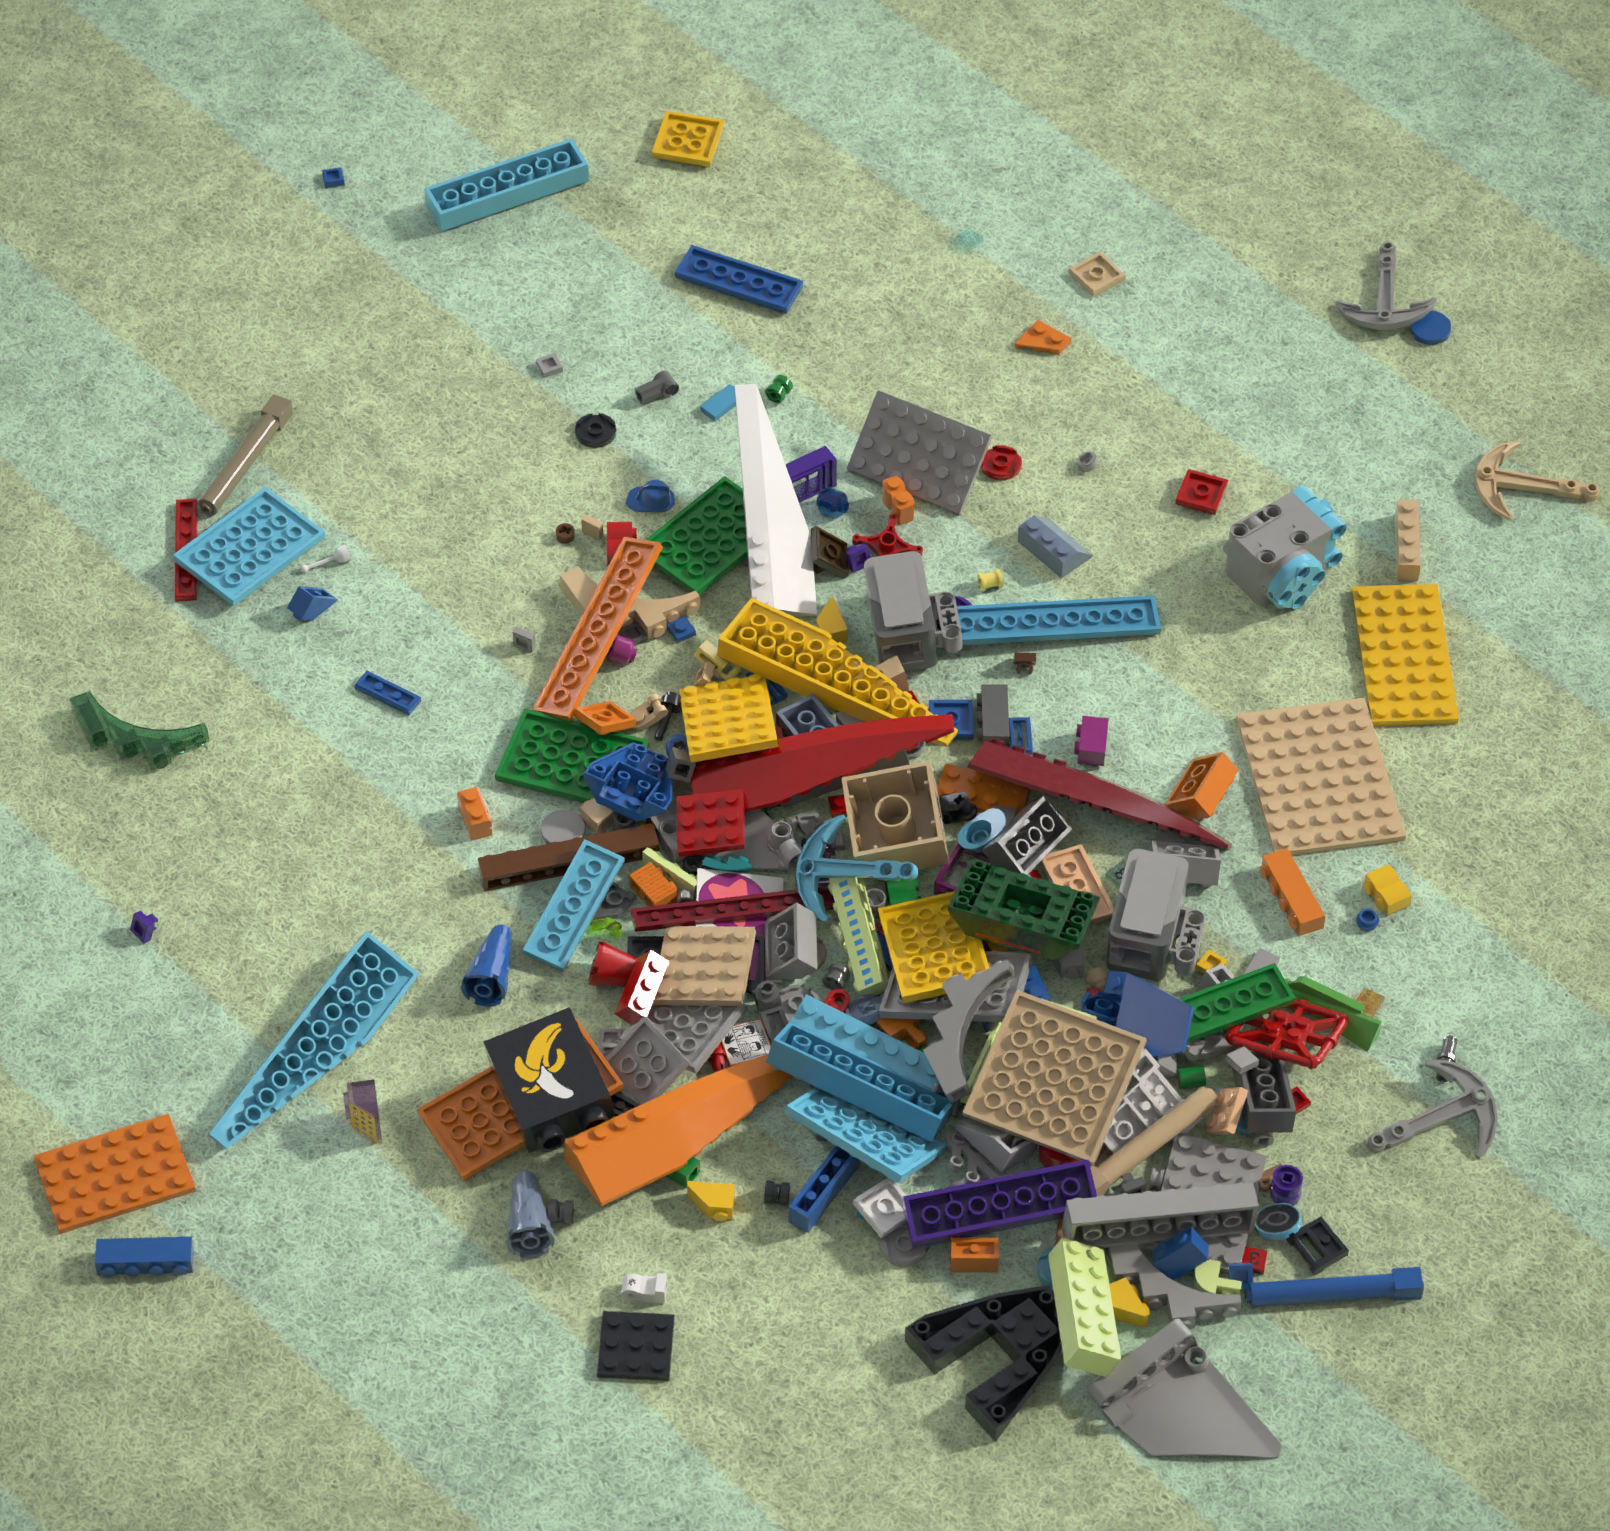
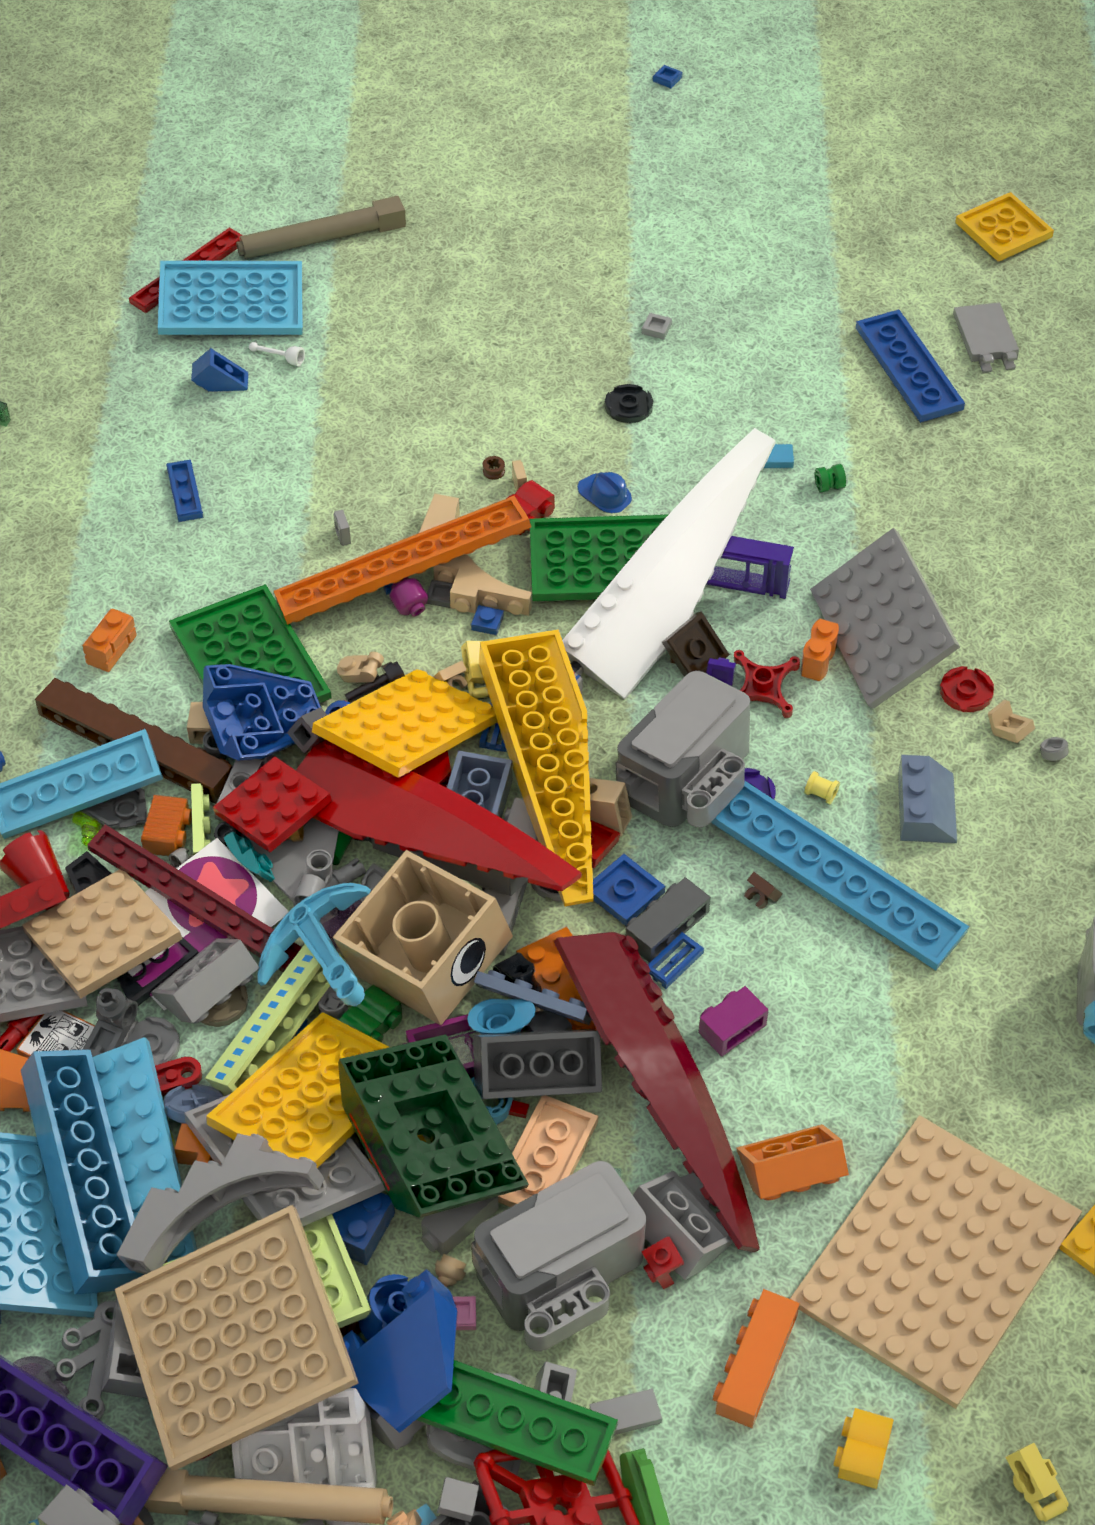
camera: 45 degrees right, 0 degrees up
(506, 184) = (796, 163): medium azure brick -> none
(562, 826) = (166, 710): light grey tile -> none
(605, 717) = (316, 642): orange plate -> none
(661, 385) = (728, 405): dark grey piece -> none
(761, 224) = (986, 335): none -> light grey tile
(832, 502) = (757, 608): clear blue head -> none
(832, 622) = (618, 714): yellow slope -> none
(836, 977) = (210, 1047): dark grey wheel -> none
(972, 810) = (545, 1000): none -> sand blue plate
(1049, 466) = (1009, 725): none -> tan bracket
(1191, 1077) = (412, 1467): green piece -> none
(1199, 884) = (662, 1260): none -> red bracket
(1210, 960) = (582, 1358): yellow plate -> none
(1367, 919) = (807, 1463): blue plate -> none
(1478, 838) = (1037, 1480): none -> light yellow piece

